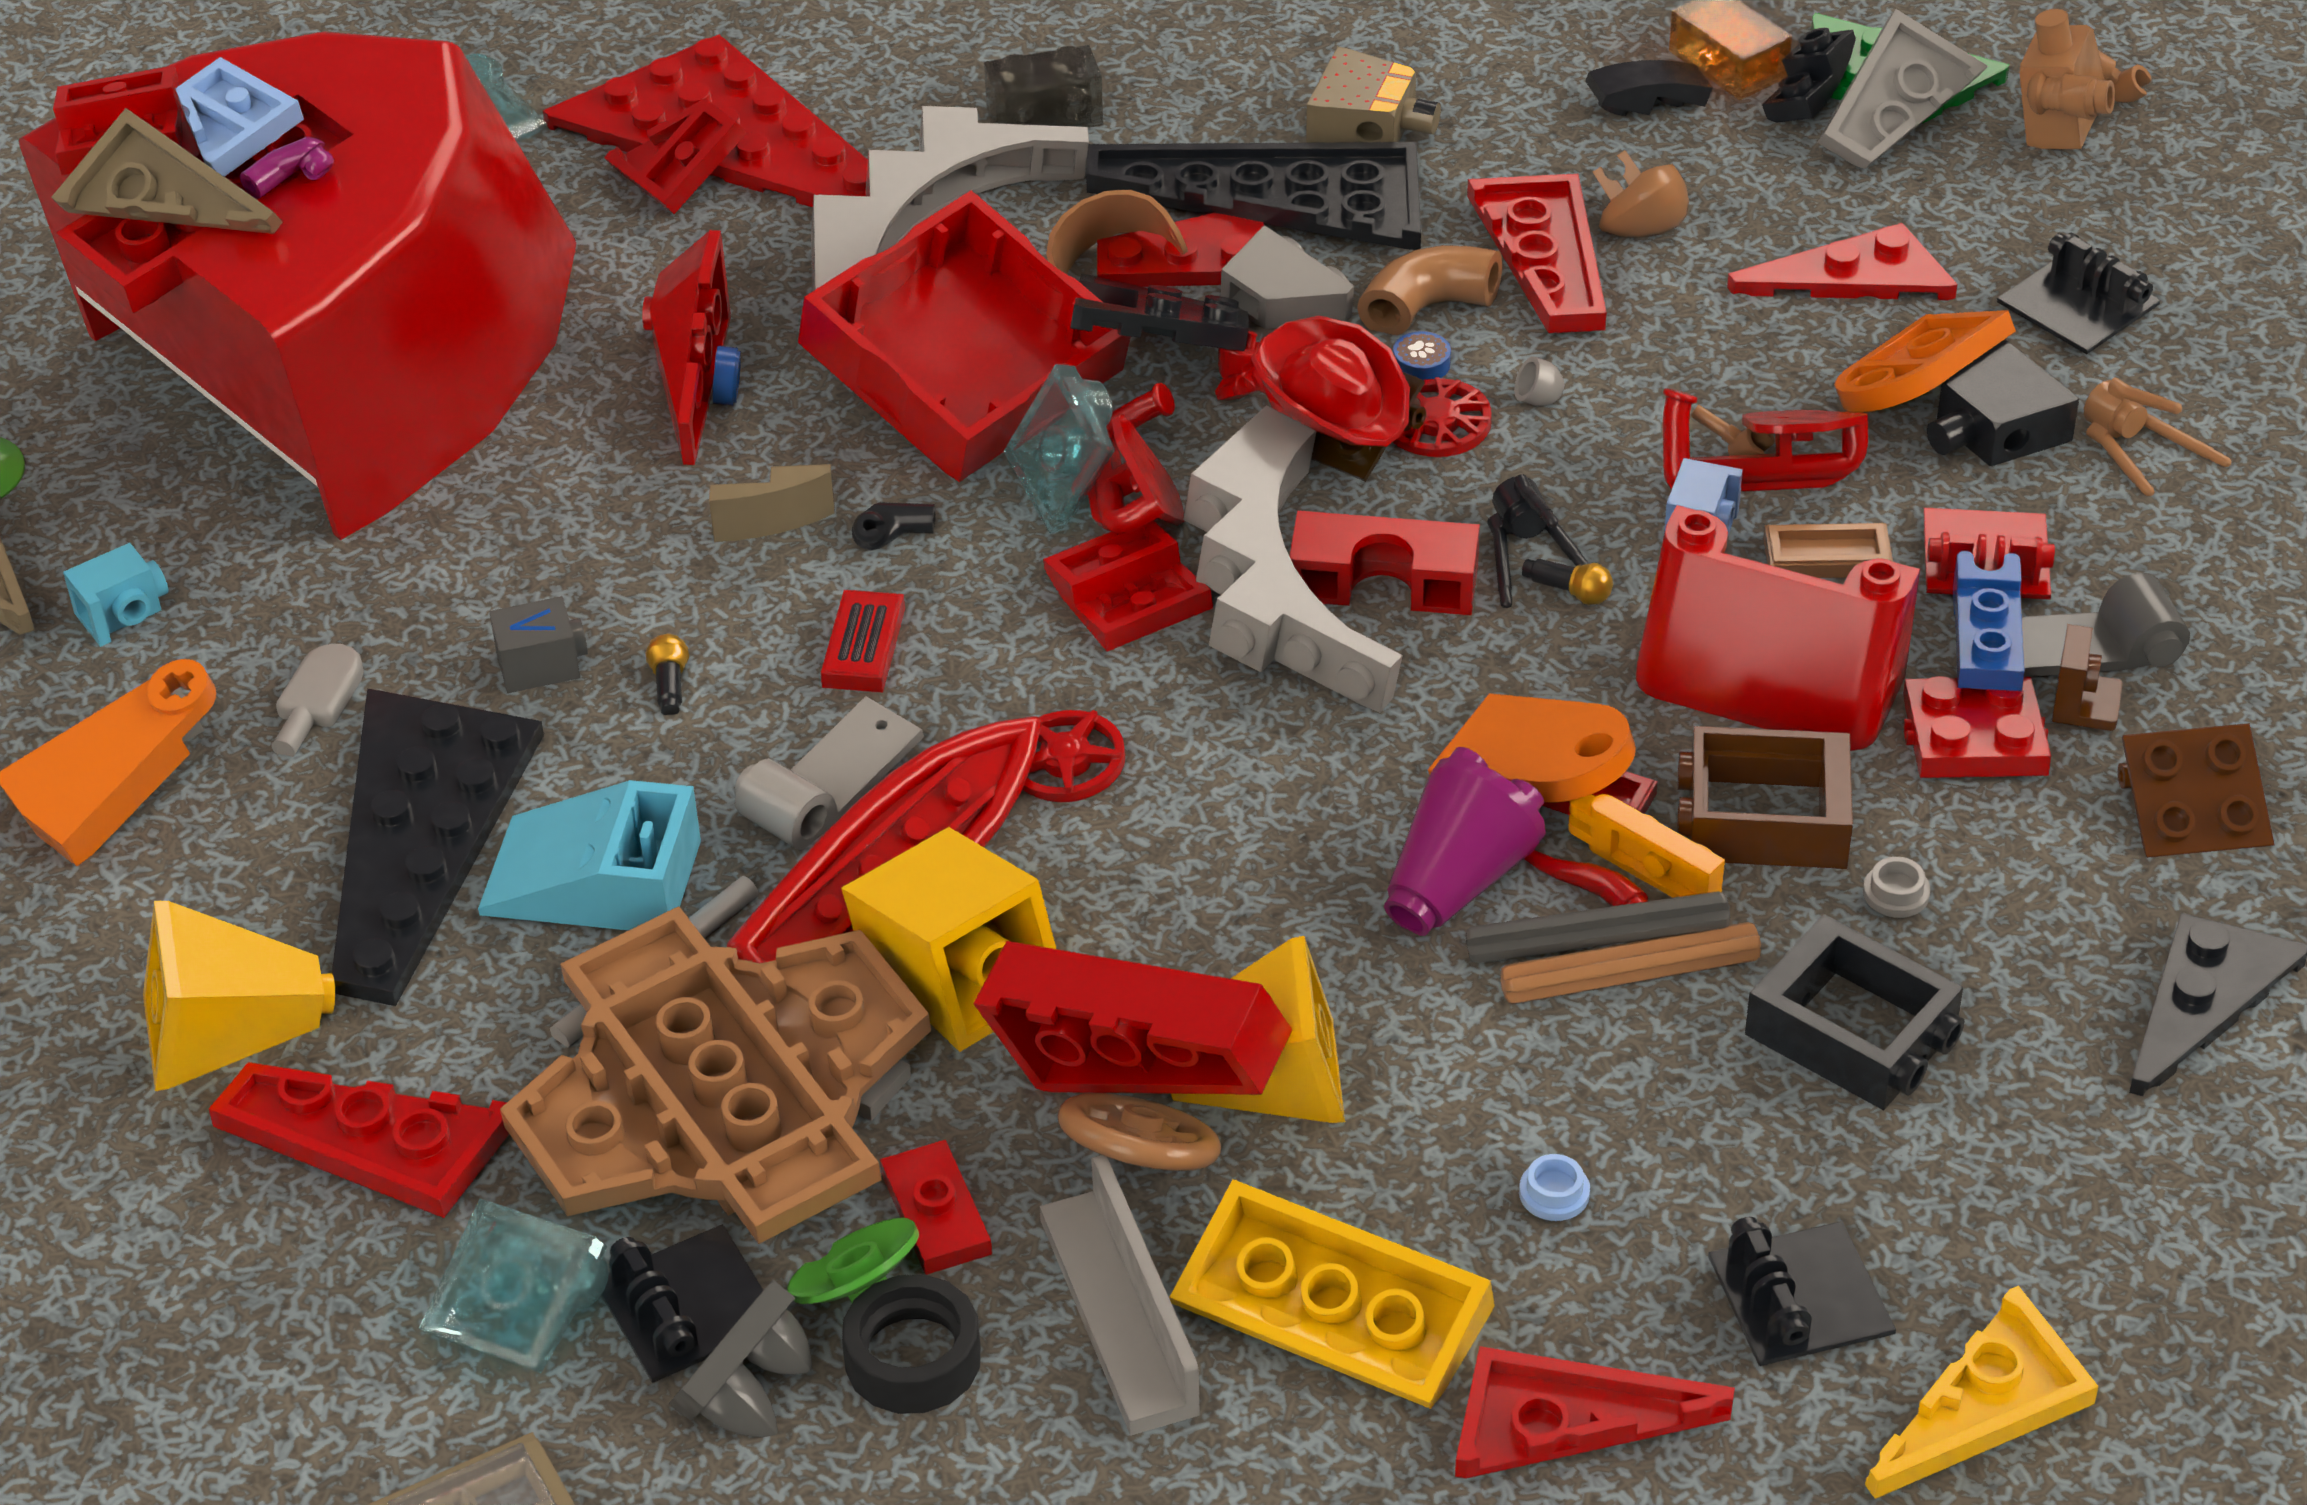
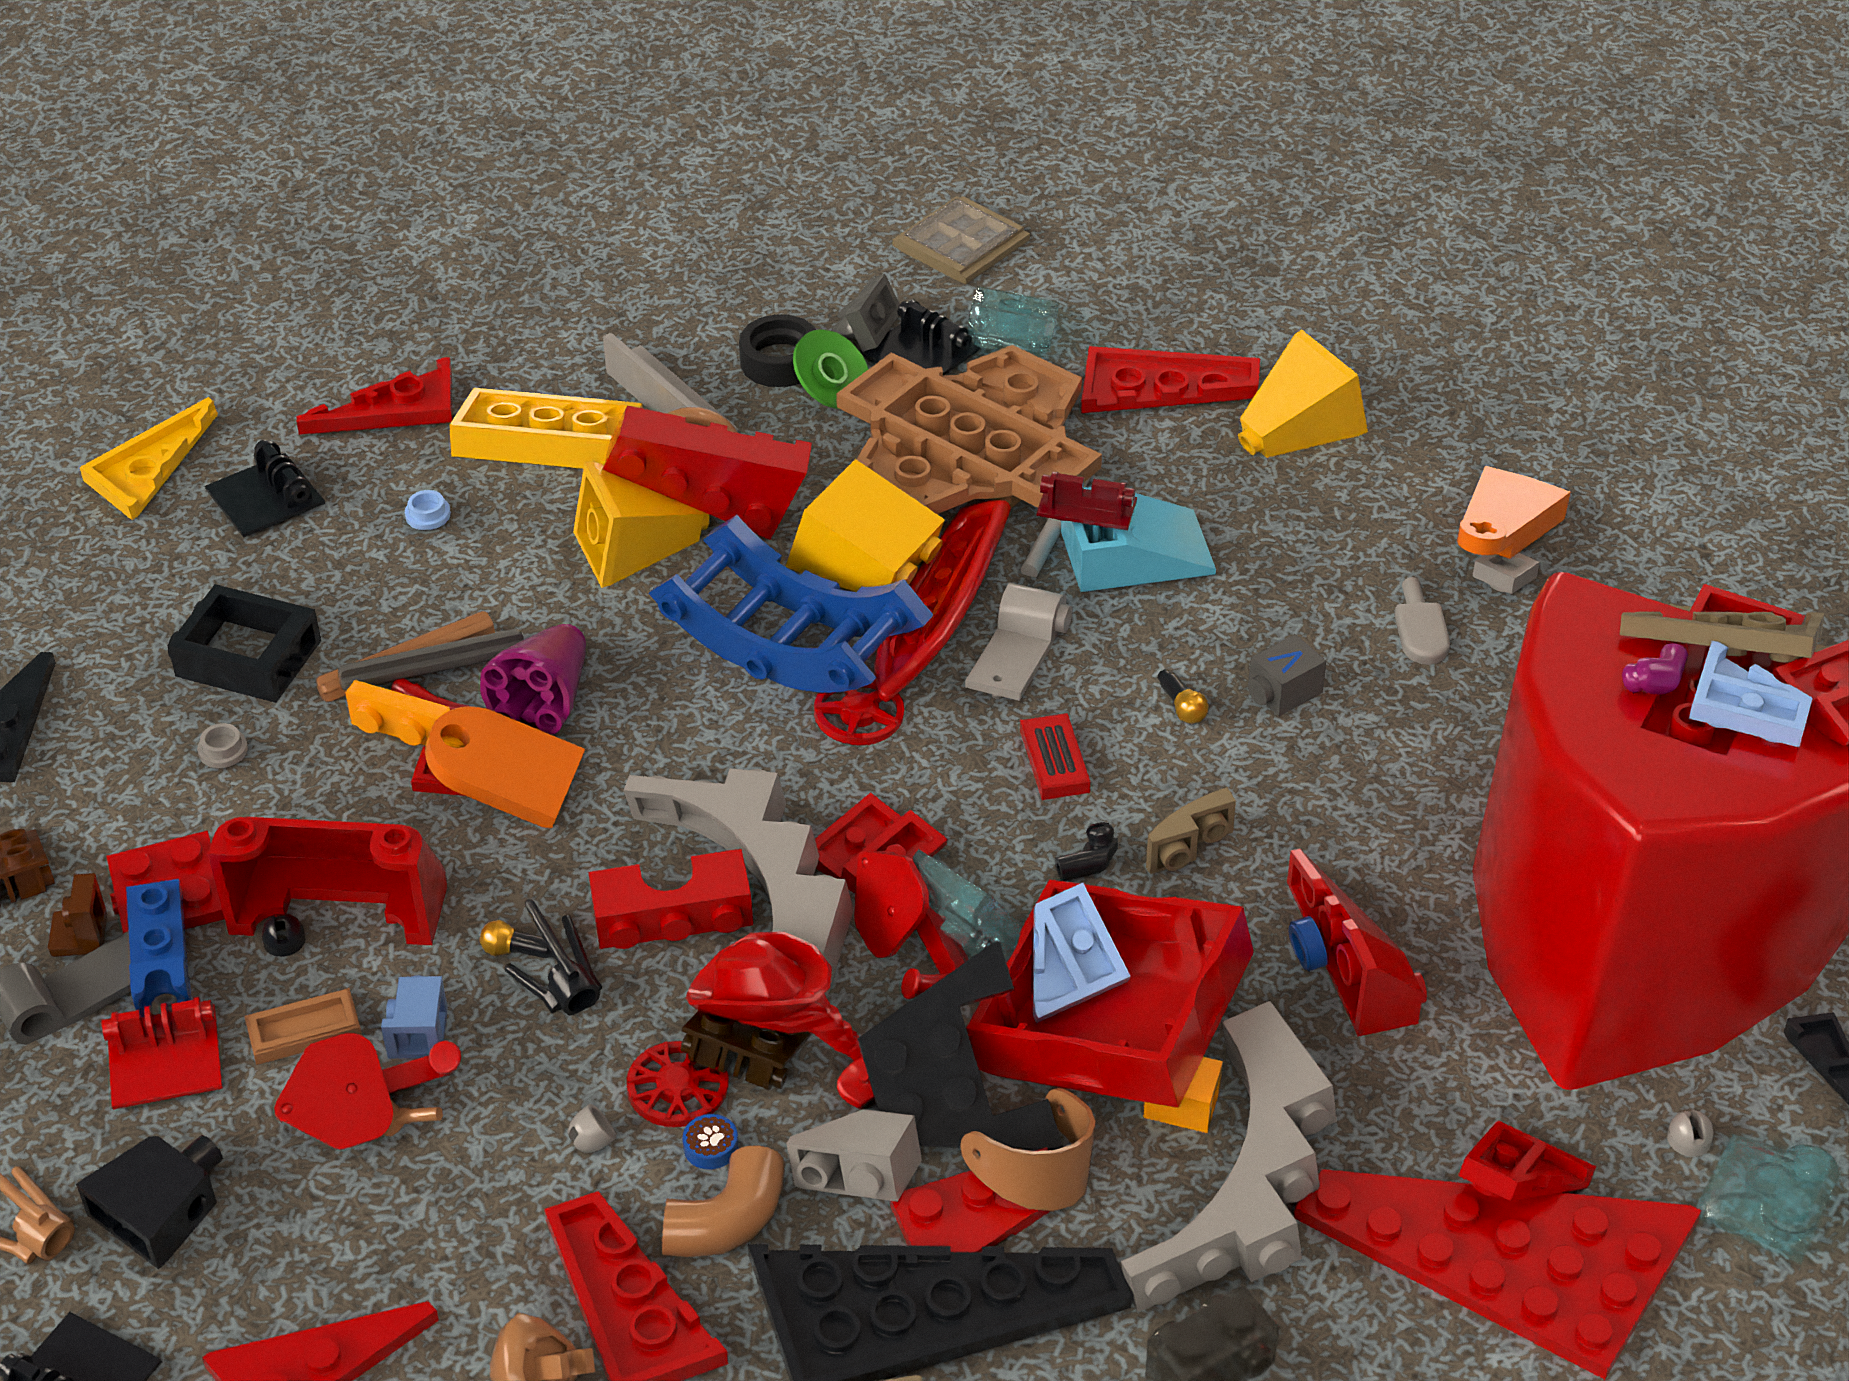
camera: 160 degrees right, 0 degrees up
(420, 815) = (1277, 563): black wing -> none
(649, 818) = (1105, 505): none -> dark red hinge
(936, 1198) = (801, 420): red plate -> none
(989, 370) = (1071, 953): none -> light blue wing
(1085, 911) = (826, 669): none -> blue fence
(1769, 759) = (324, 746): reddish brown window -> none
(1920, 358) = (232, 1222): orange tile -> none

